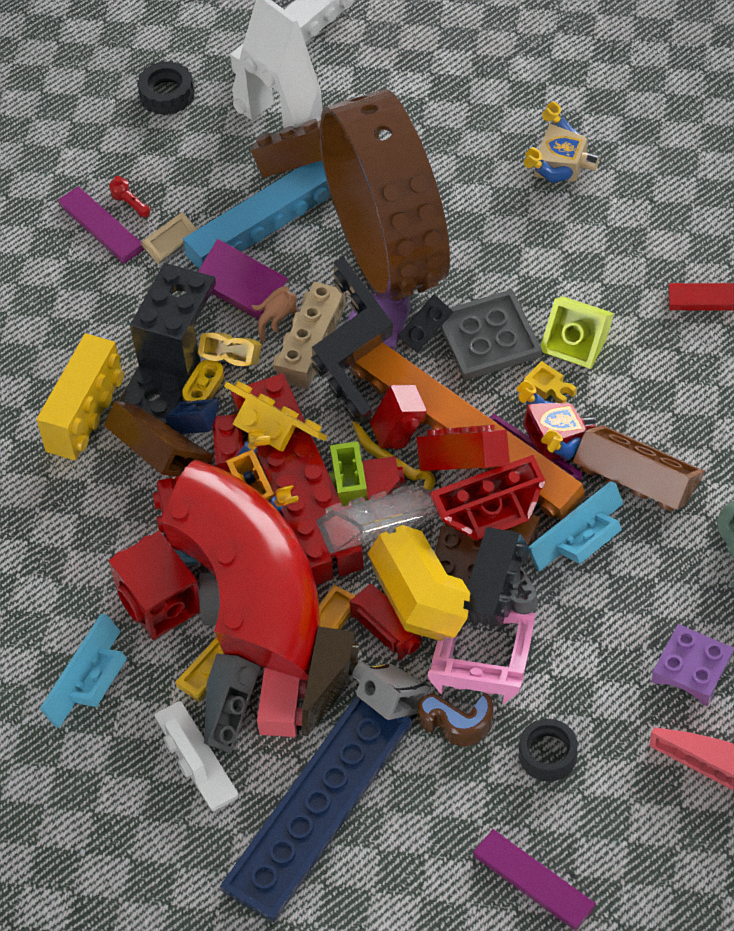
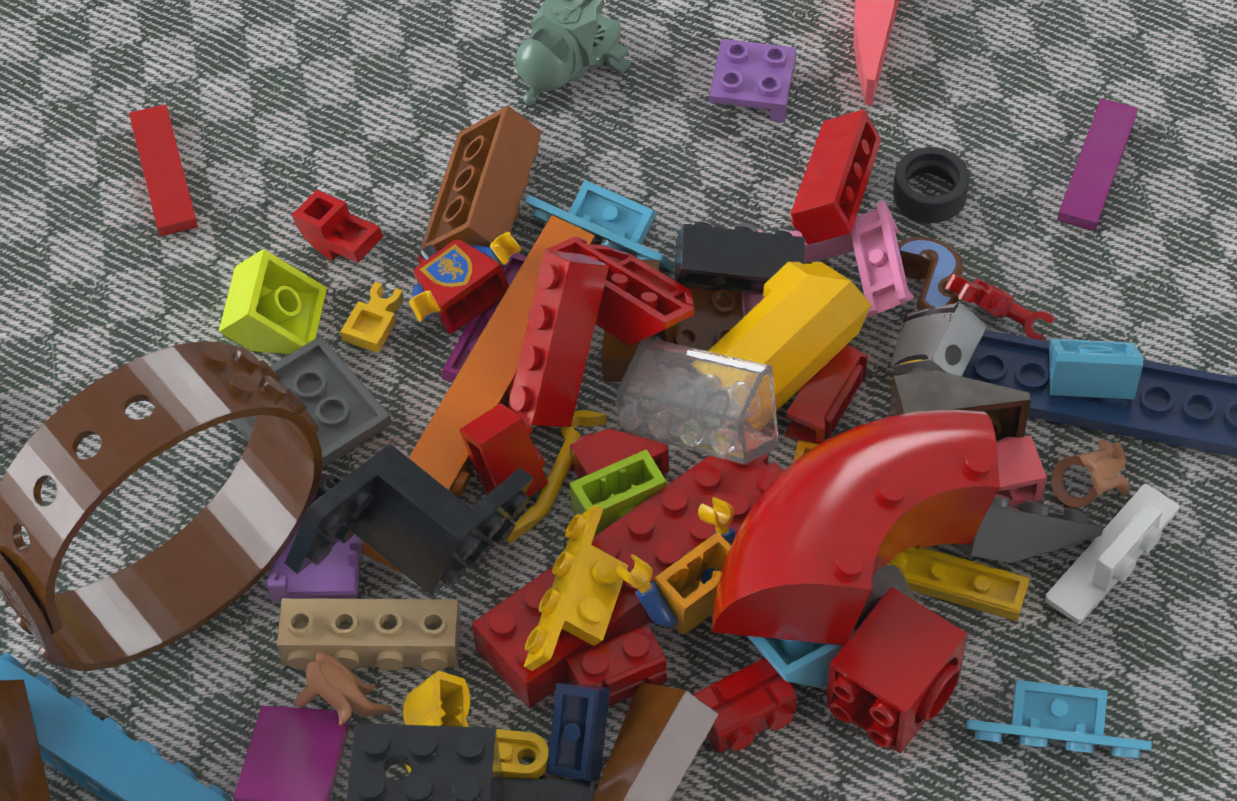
camera: 110 degrees left, 0 degrees up
(255, 765) = (1102, 469): none -> nougat piece
(335, 783) = (1094, 368): none -> medium azure slope
(423, 751) = (997, 303): none -> red piece
(560, 672) = (836, 177): none -> red brick
(632, 374) = (333, 229): none -> red brick

